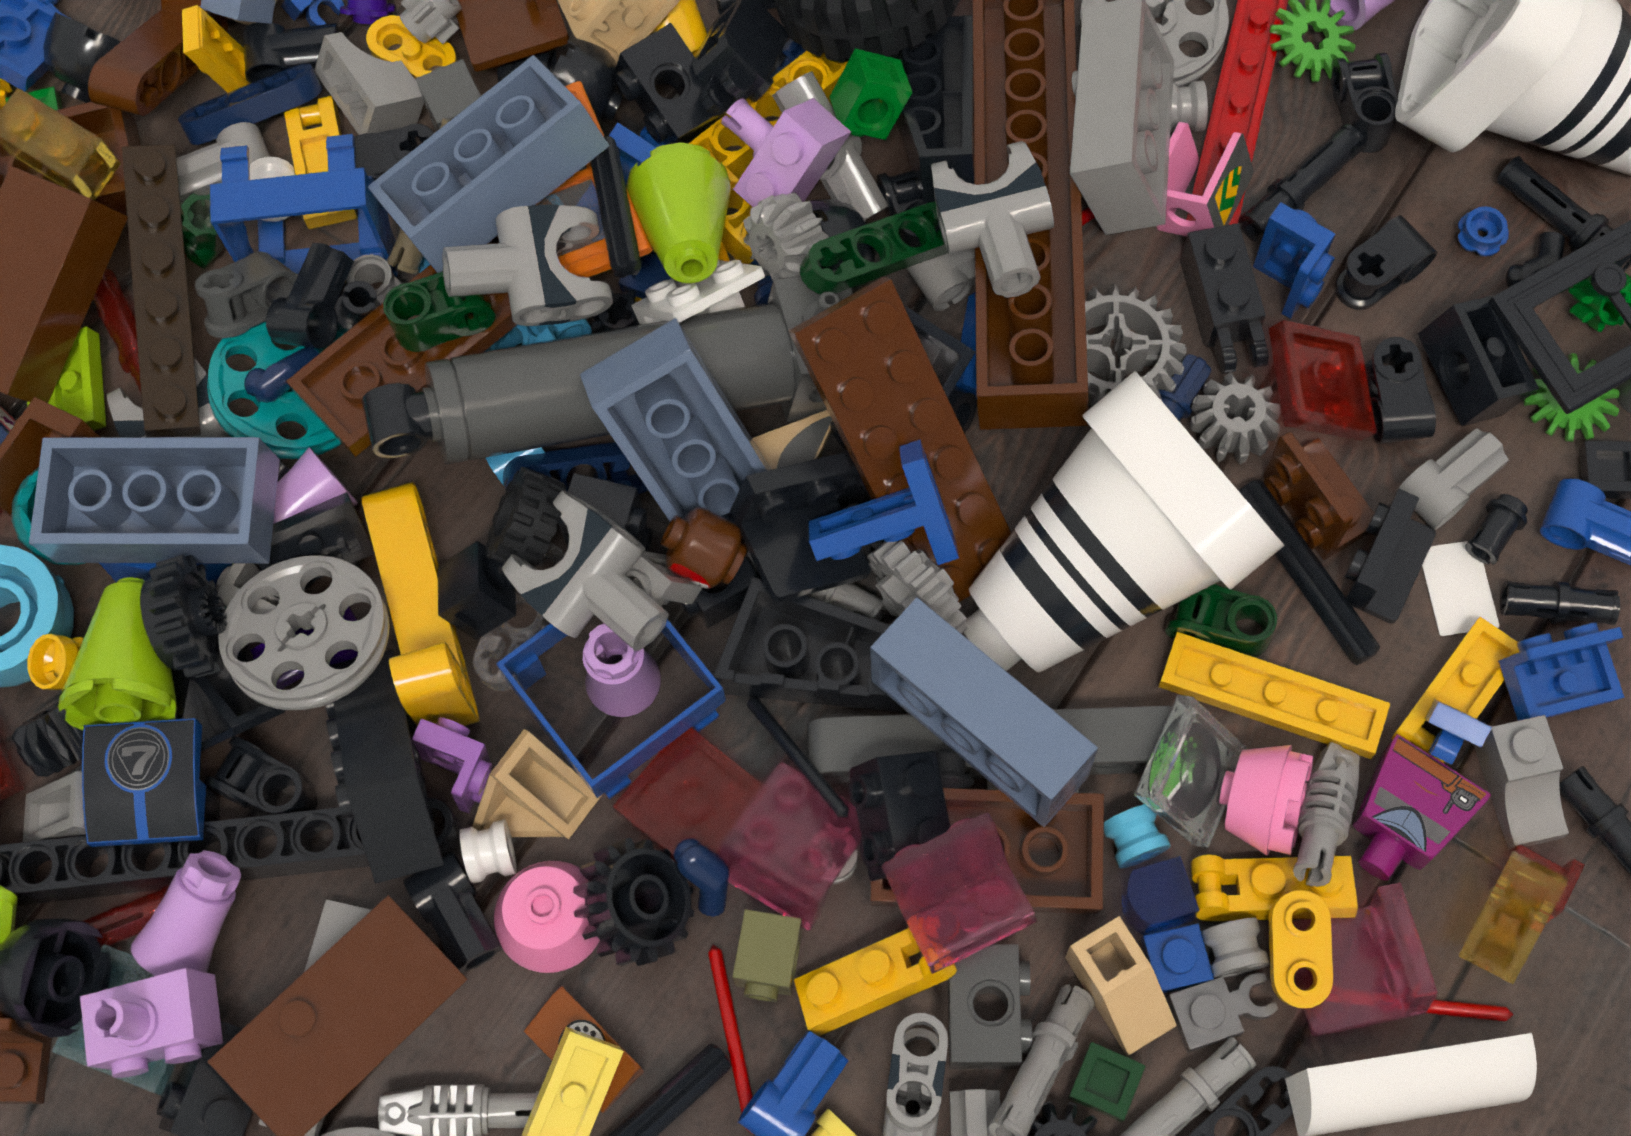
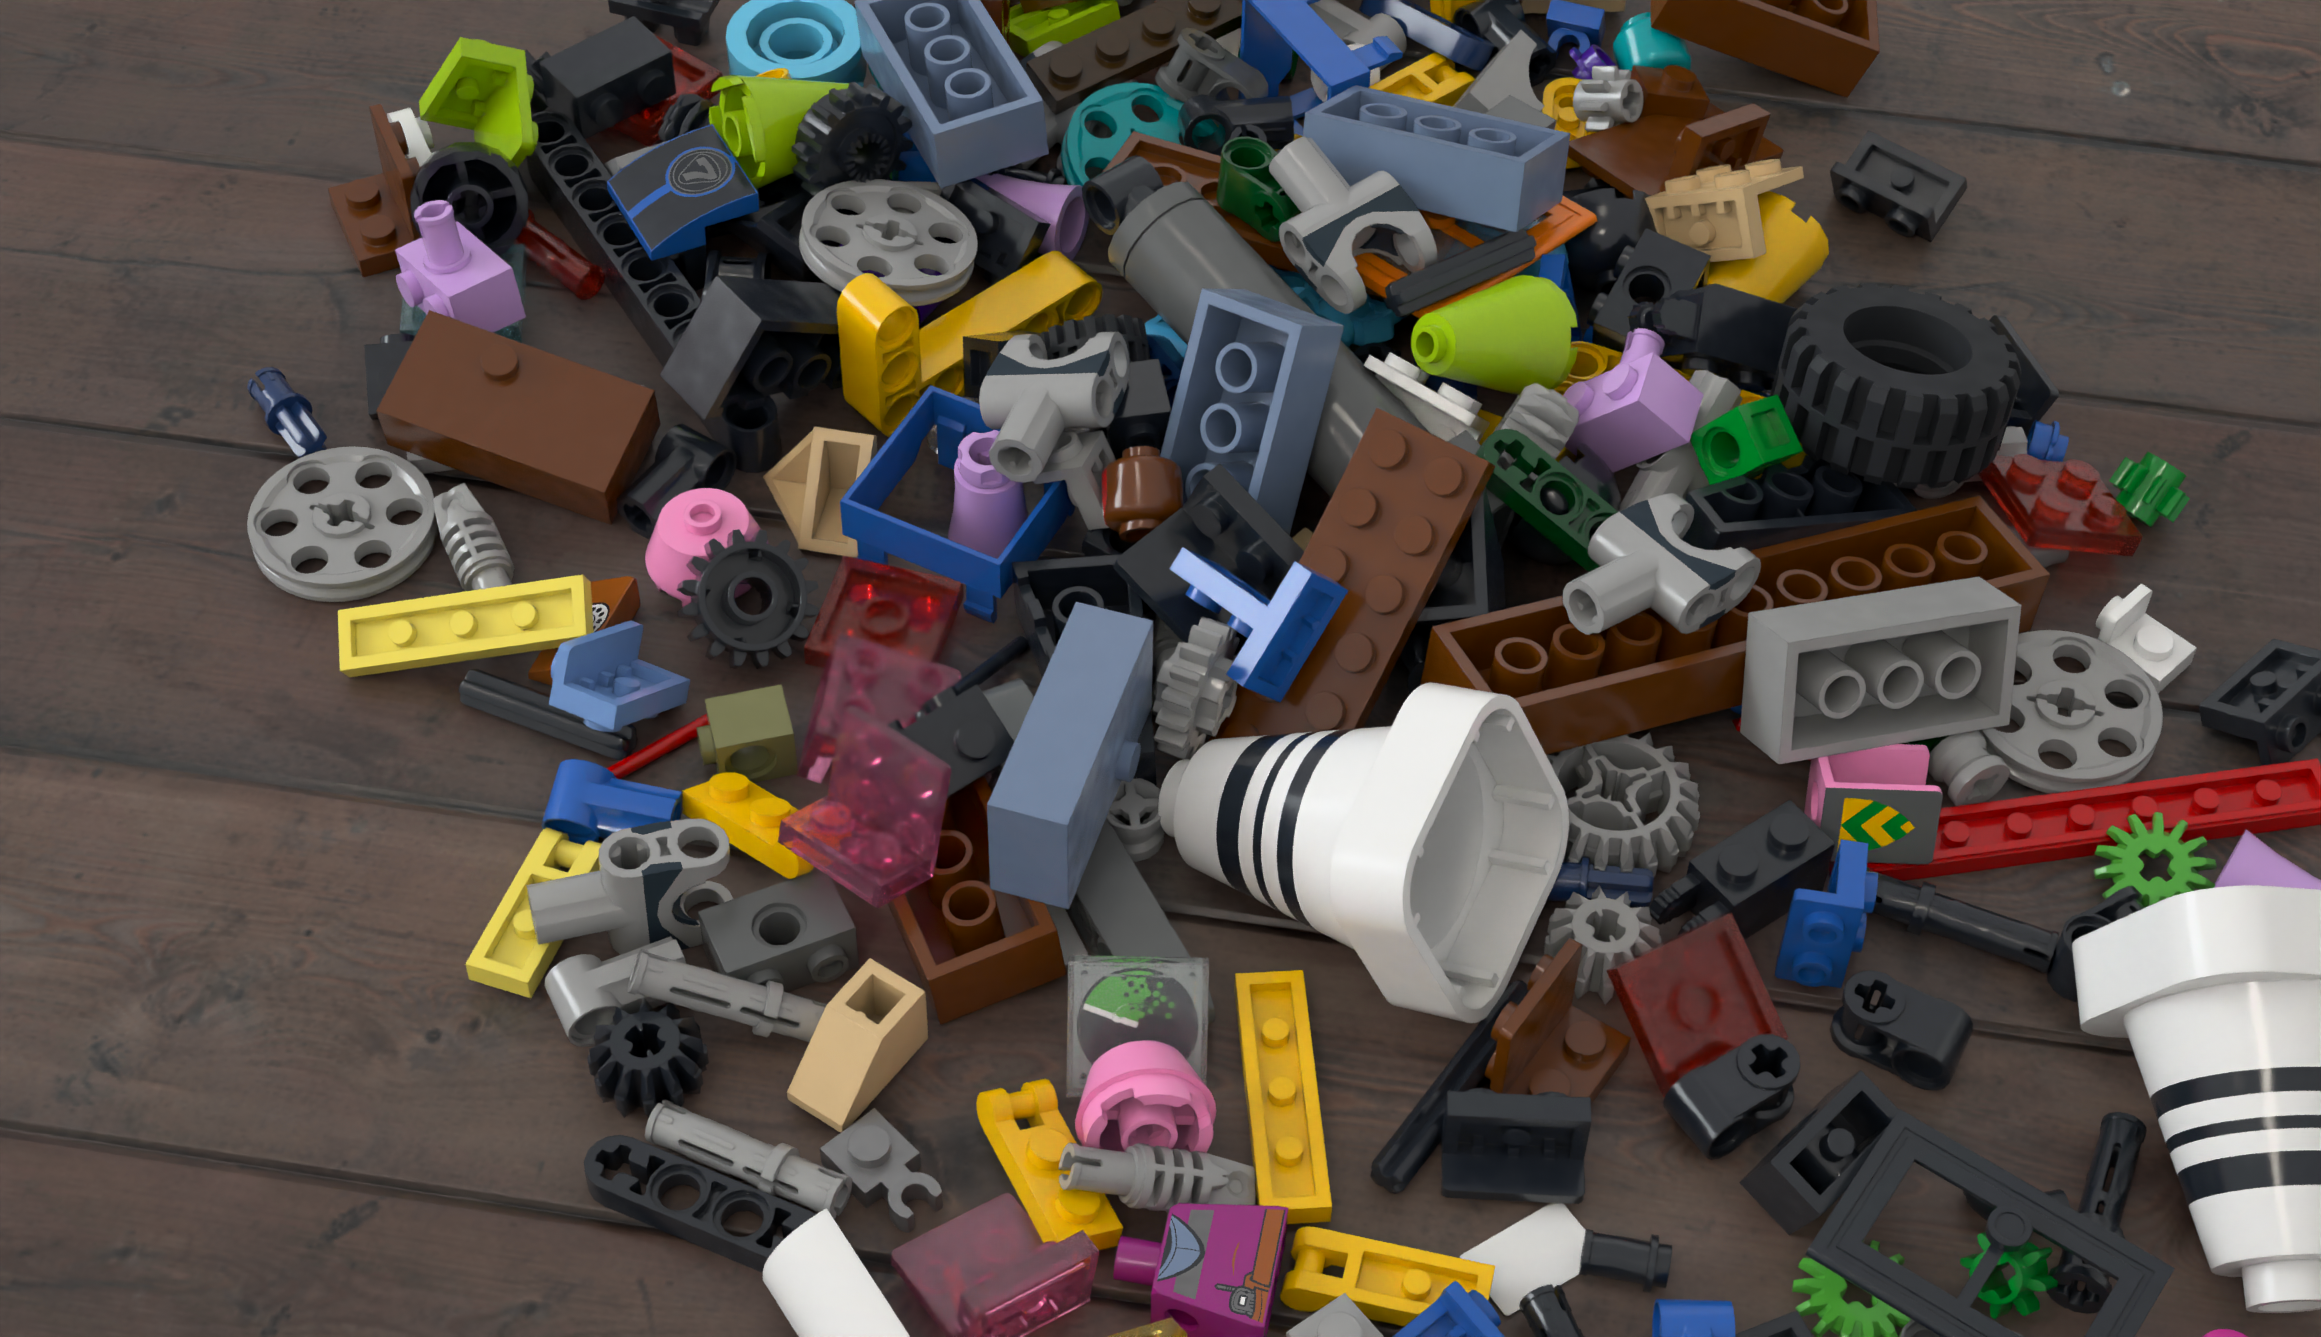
camera: 60 degrees right, 20 degrees down
(188, 916) = (573, 279): lavender plant -> none
(271, 383) = (1125, 120): dark blue arm -> none
(450, 748) = (825, 403): medium lavender bracket -> none
(488, 851) = (751, 479): white wheel -> none
(677, 1043) = (608, 684): none -> medium blue bracket
(705, 871) = (808, 649): dark blue arm -> none
(1106, 1082) = (747, 1081): dark green plate -> none
(1135, 836) = (1037, 1013): medium azure wheel -> none
(1158, 897) = (979, 1051): clear blue piece -> none
(1178, 957) = (923, 1108): blue plate -> none
(1218, 617) = (1344, 1019): dark green piece -> none
(1235, 947) = (957, 1149): light grey wheel -> none
(1298, 949) = (979, 1196): yellow plate -> none
(1450, 481) = (1642, 1181): light grey piece -> none
(1454, 729) = (1324, 1259): tile -> none
(1486, 220) = (2023, 1112): blue plate -> none

